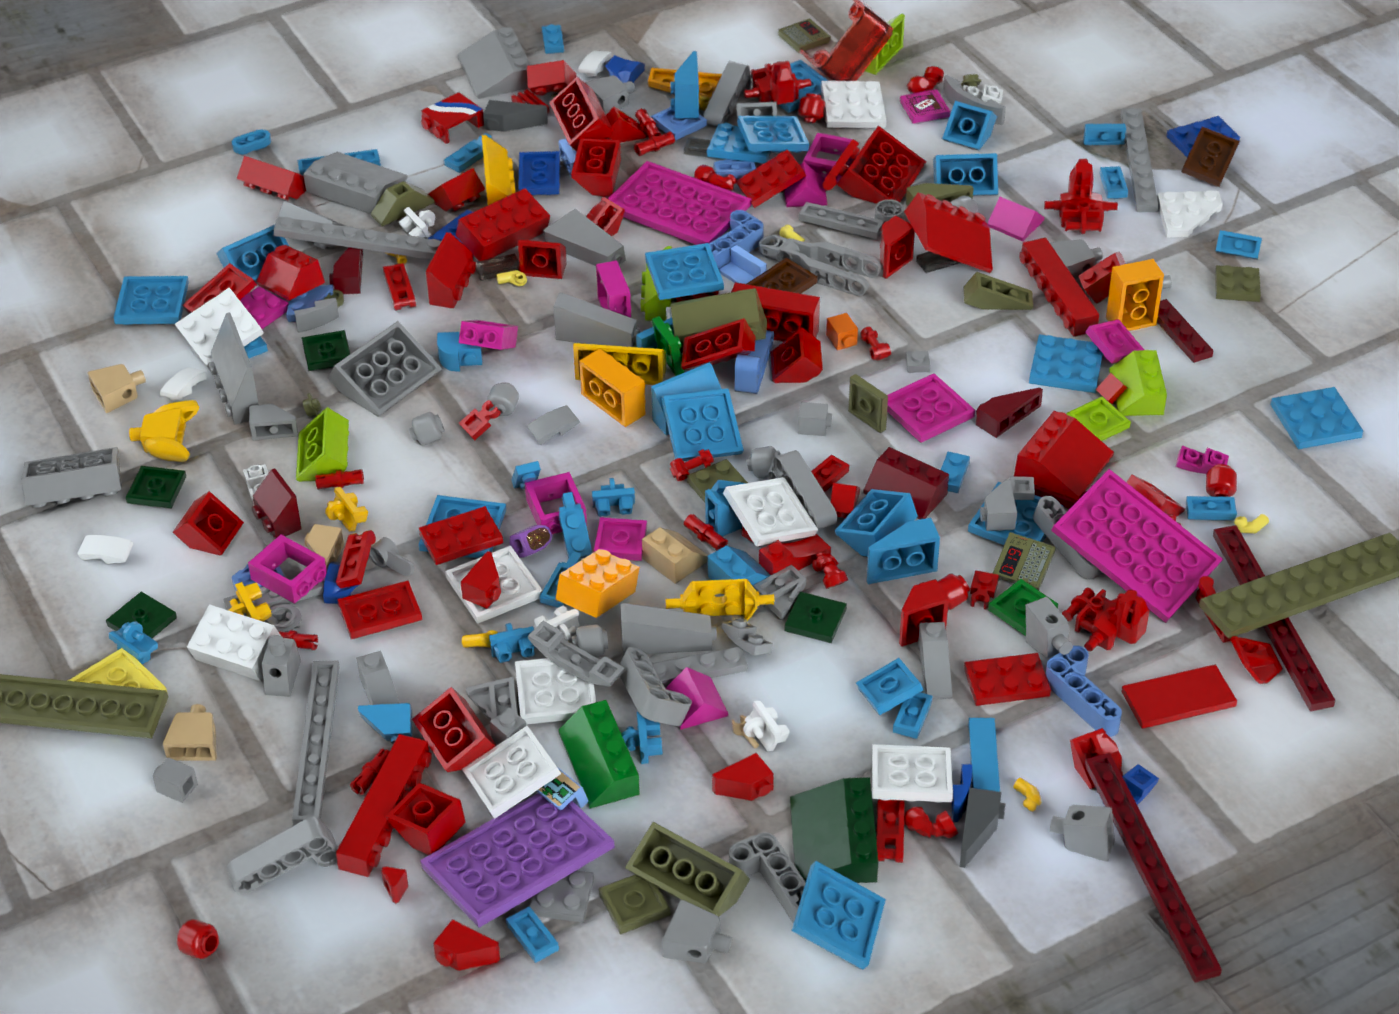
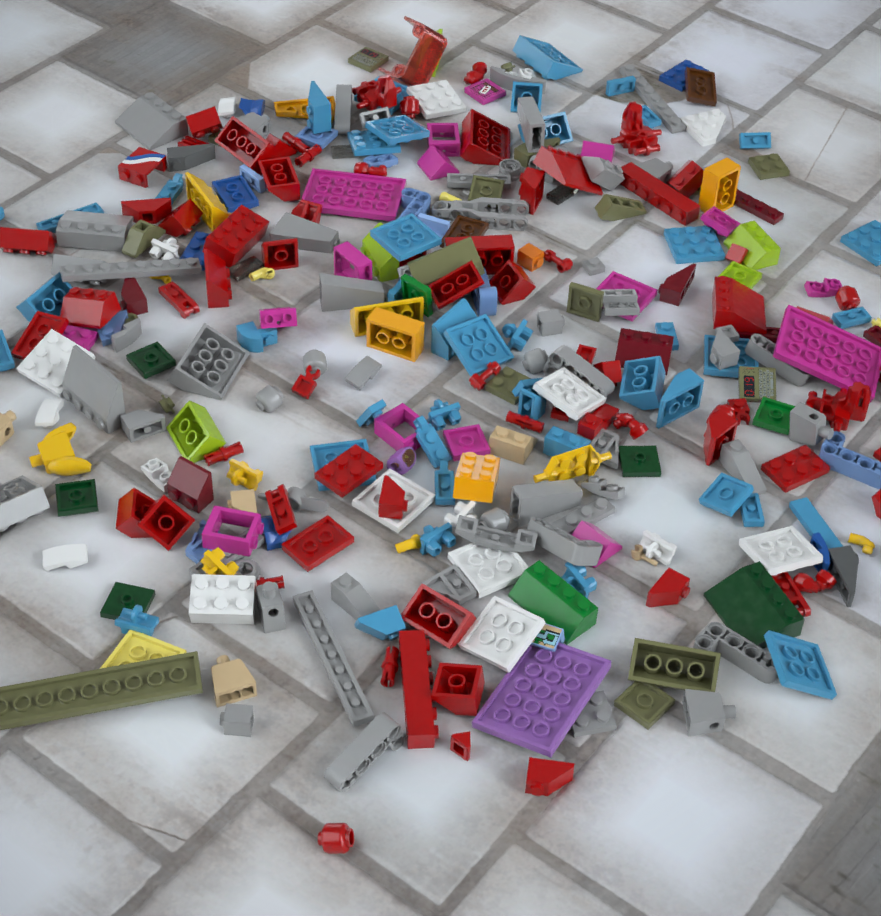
camera: 25 degrees left, 0 degrees up
(223, 540) = (165, 522): none -> red slope
(427, 172) = (148, 209): none -> red slope
(505, 725) = (476, 601): light grey brick -> none
(532, 934) = (589, 750): dark azure plate -> none
(552, 39) = (182, 96): dark azure plate -> none
(760, 421) = (512, 332): none -> dark azure hips
(771, 178) = (413, 161): red plate -> none
(840, 166) = (460, 142): red hinge -> none
(841, 231) = (486, 187): none -> olive tile
(913, 414) = (620, 302): none -> light grey slope
(936, 160) = (531, 123): none -> light grey slope
(997, 244) = (603, 172): none -> light grey slope
(1029, 78) = (545, 58): none -> dark azure slope

